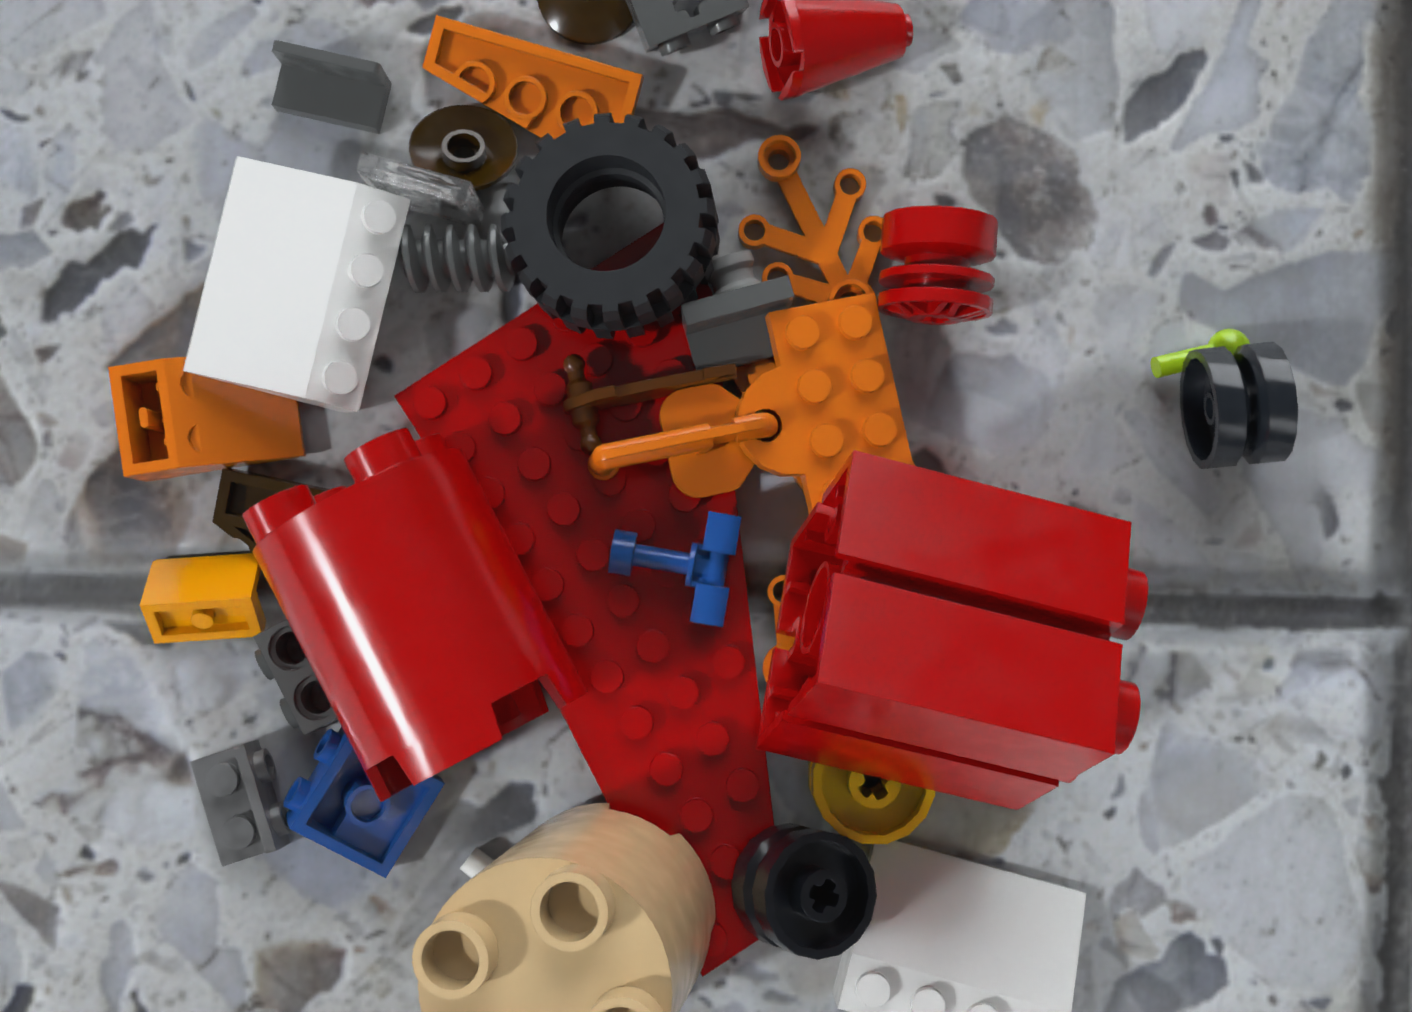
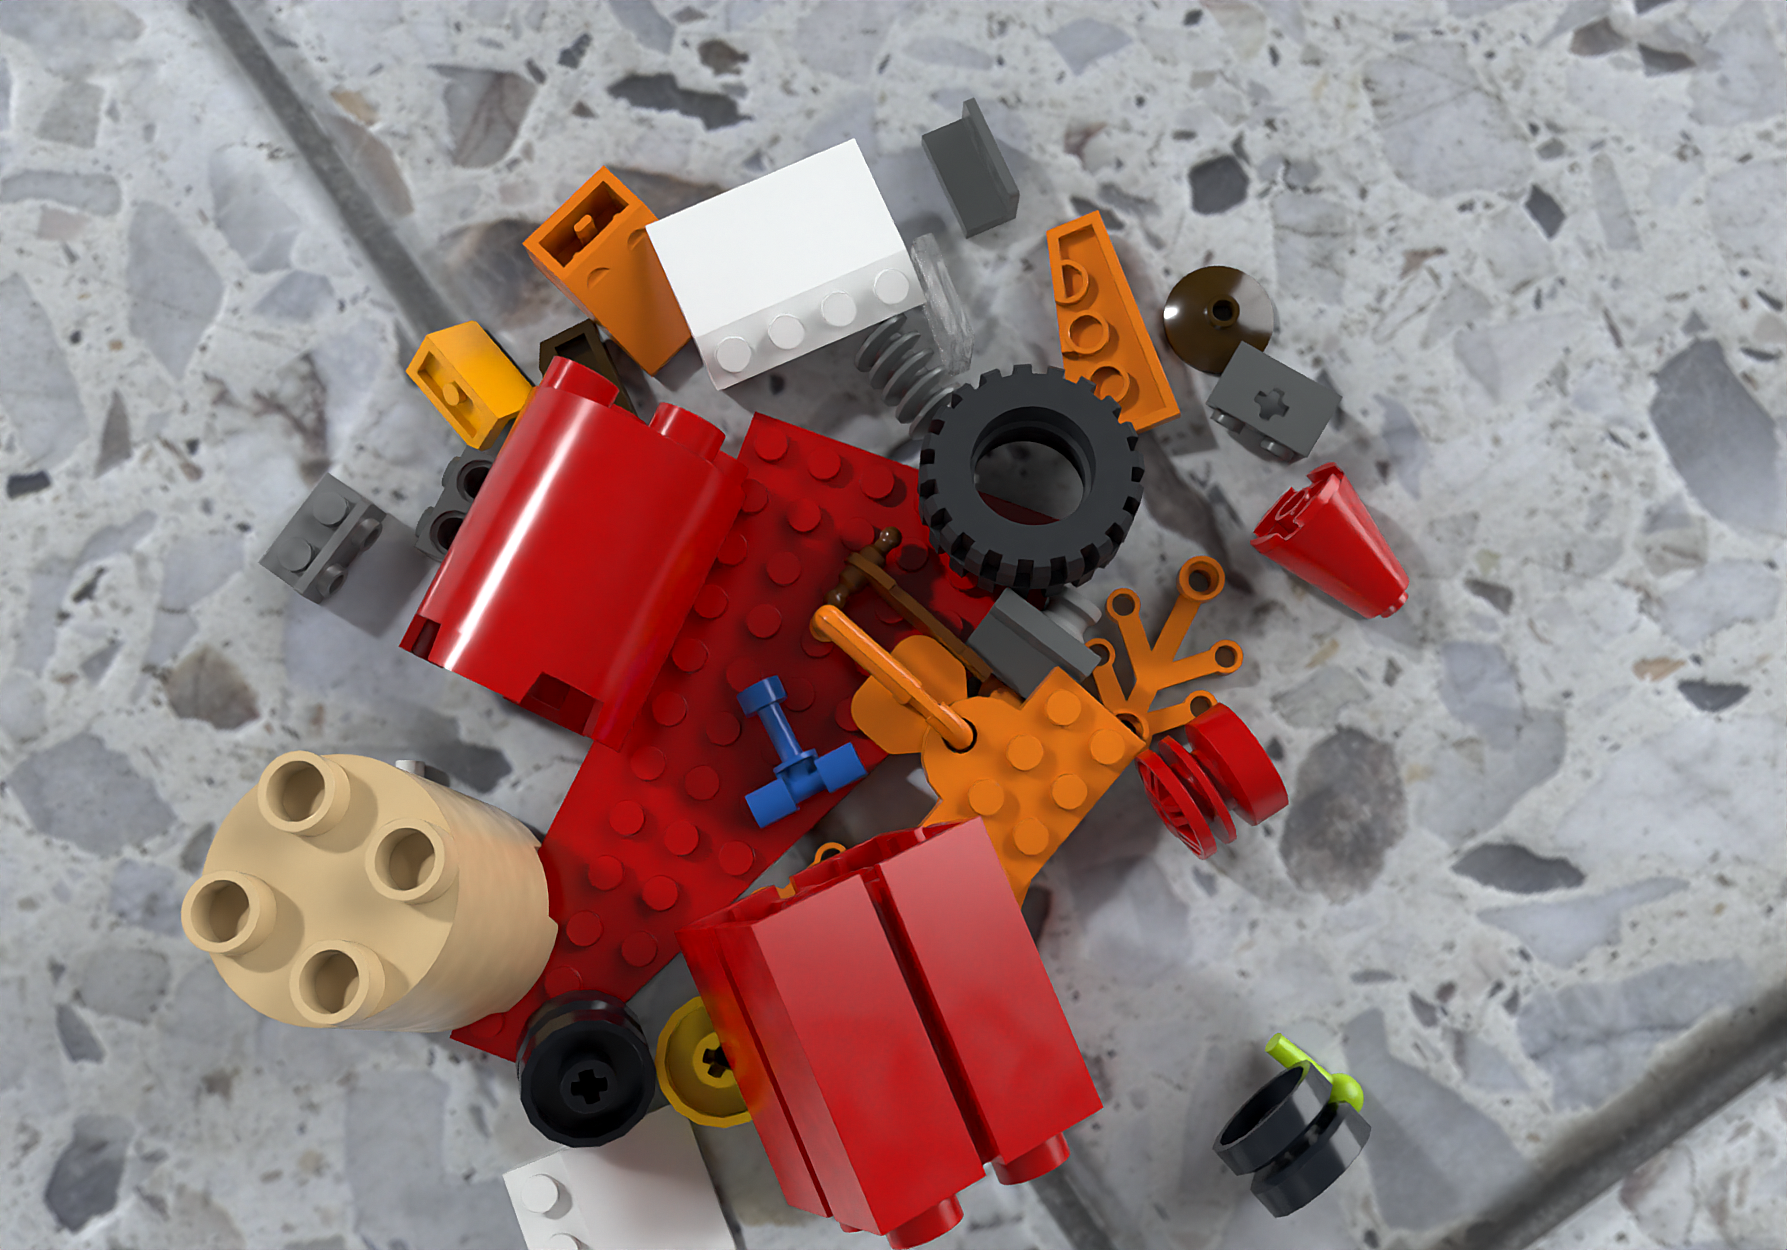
camera: 55 degrees right, 5 degrees down
(344, 812) = (367, 627): blue plate -> none
(465, 145) = (1018, 304): dark brown dish -> none

